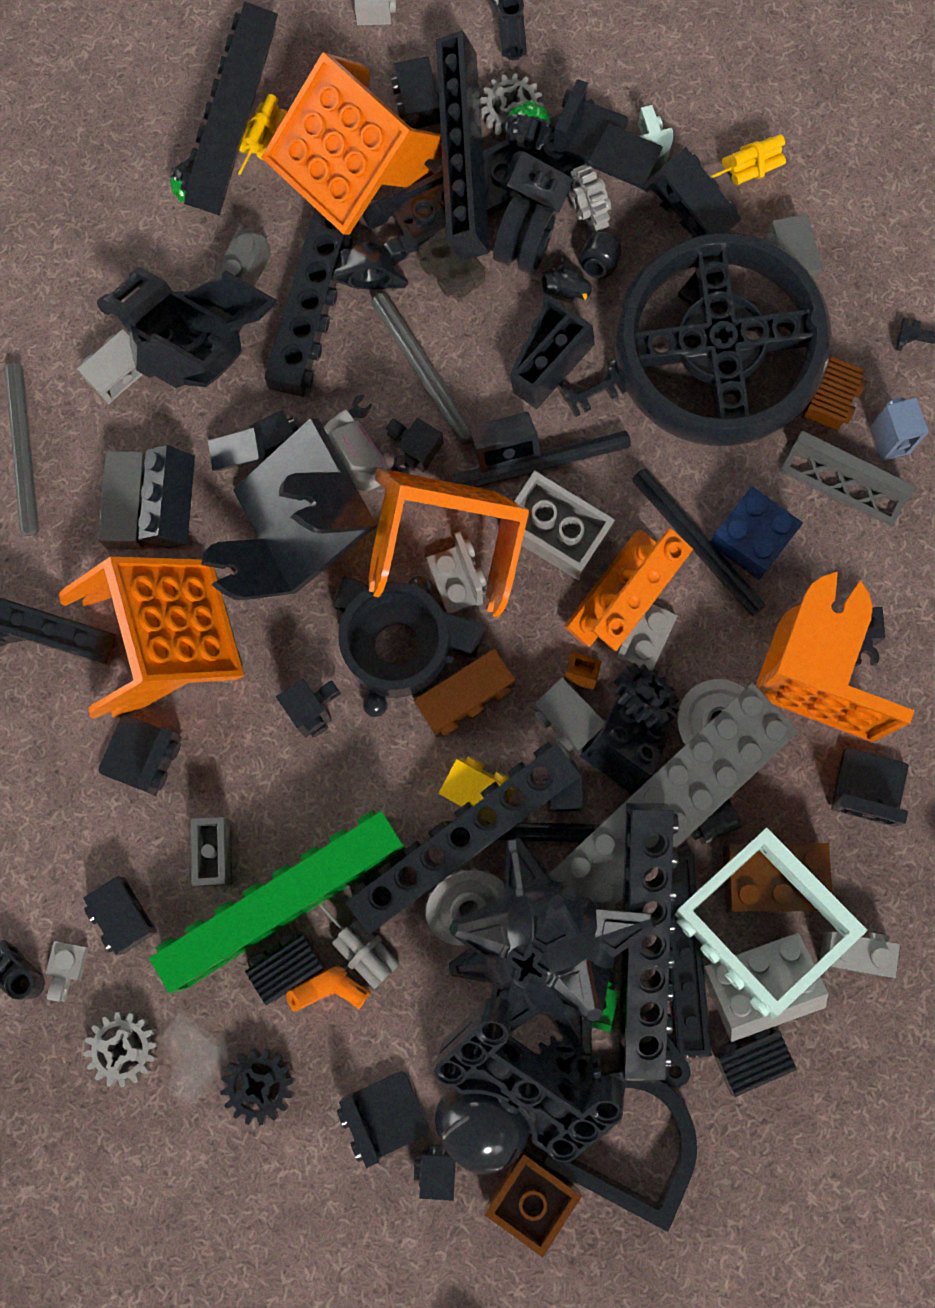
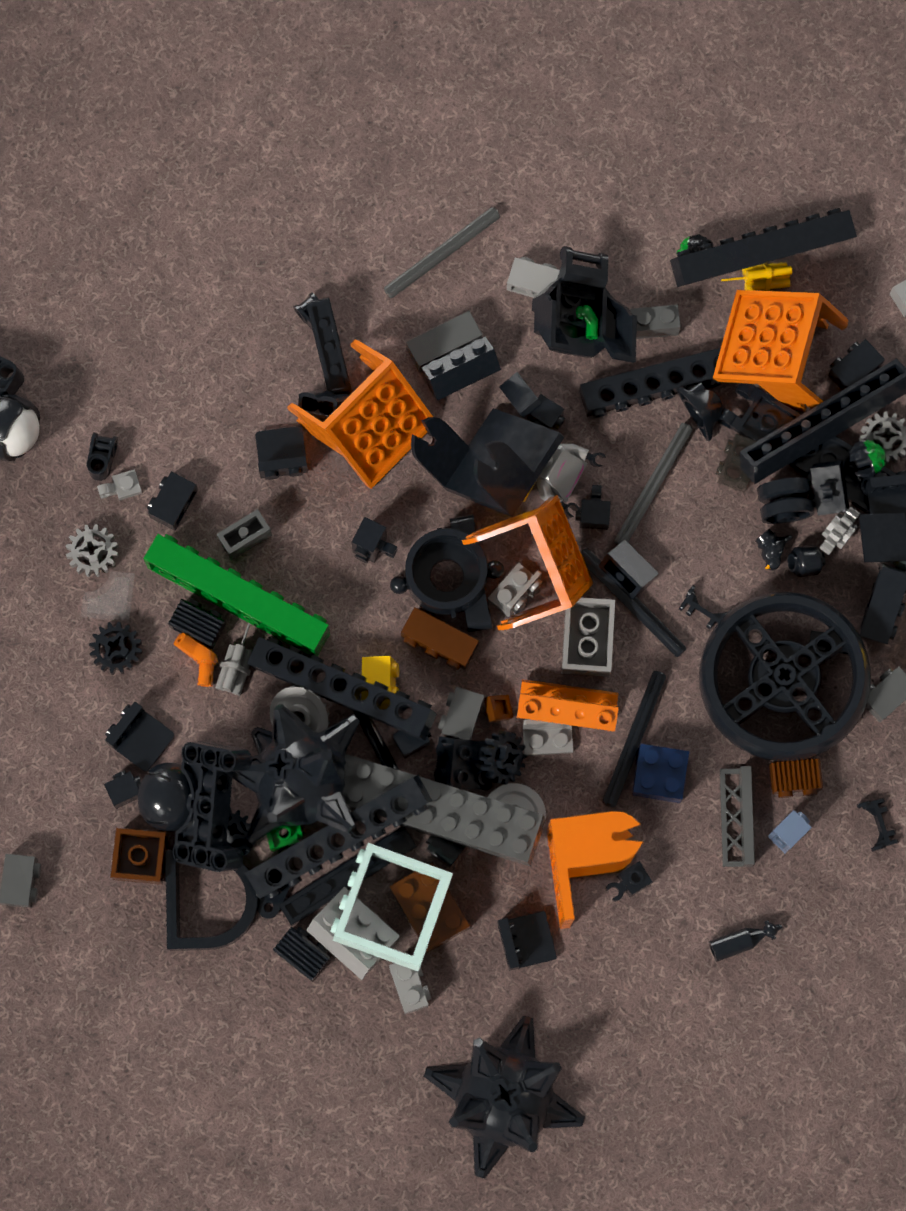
camera: 55 degrees right, 0 degrees up
(109, 673) = (320, 402): none -> black brick
(201, 327) = (591, 319): none -> green arm
(551, 352) = (710, 565): black wedge -> none

